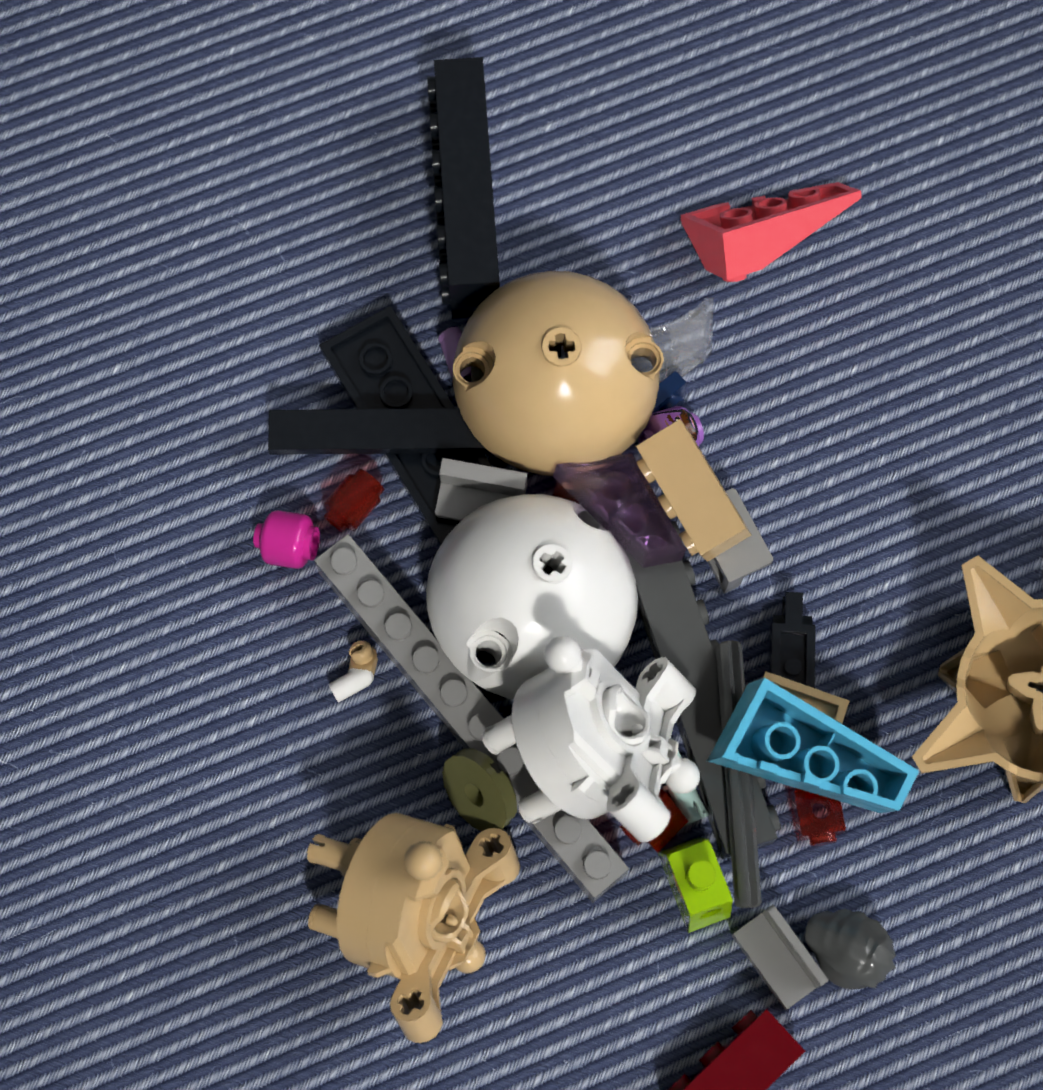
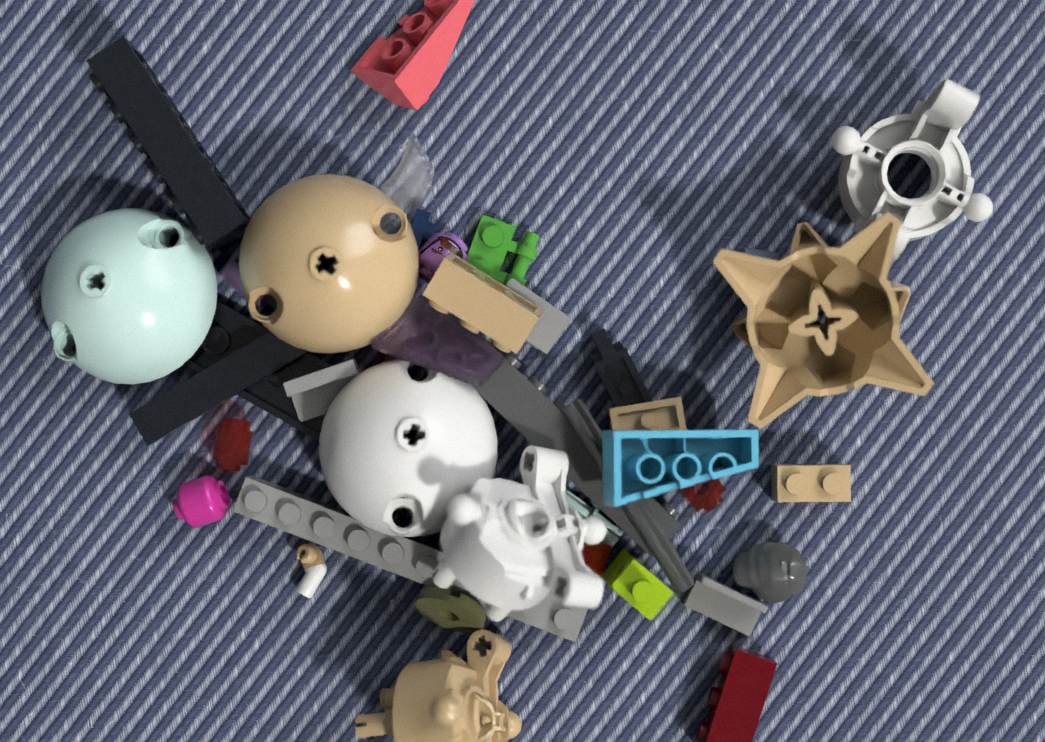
camera: 25 degrees left, 15 degrees up
(337, 301) = (152, 300): none -> light aqua piece
(735, 451) = (491, 246): none -> bright green plate
(943, 876) = (811, 482): none -> tan brick

